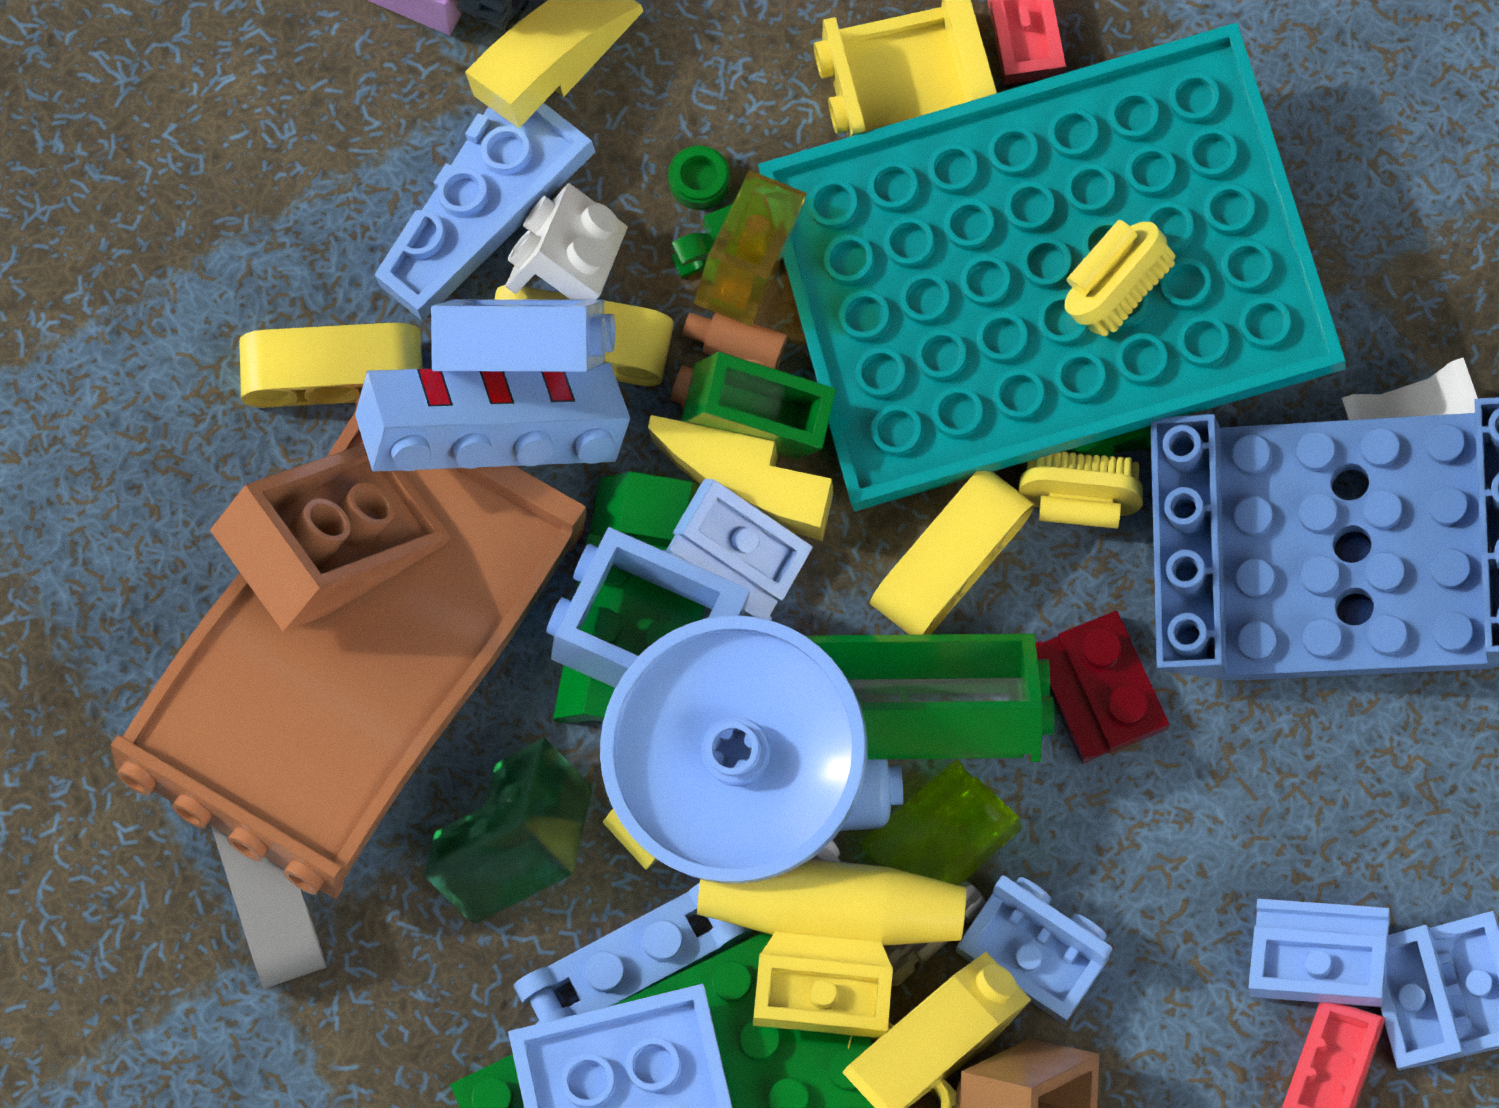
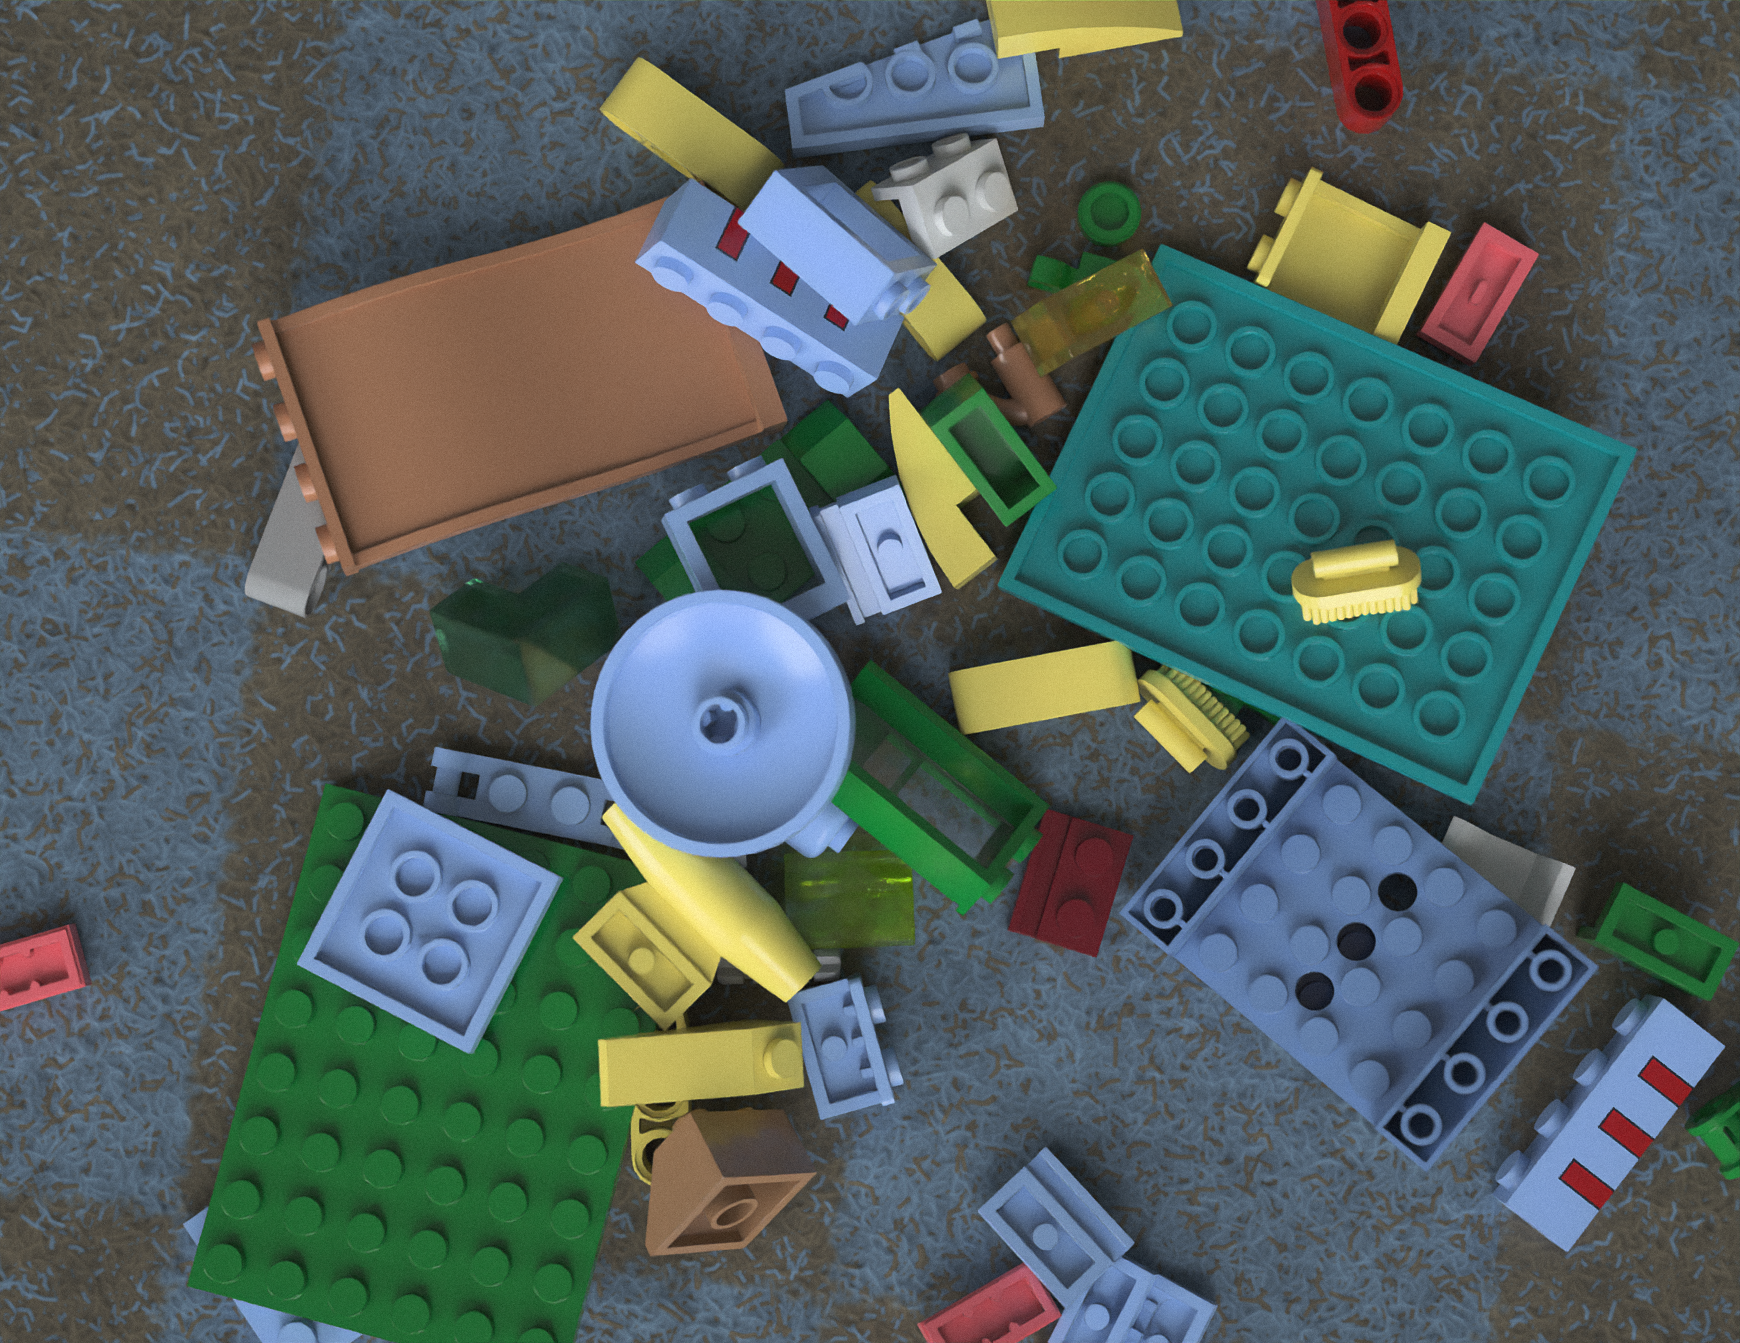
camera: 40 degrees right, 15 degrees up
(326, 534) = (562, 282): nougat slope -> none

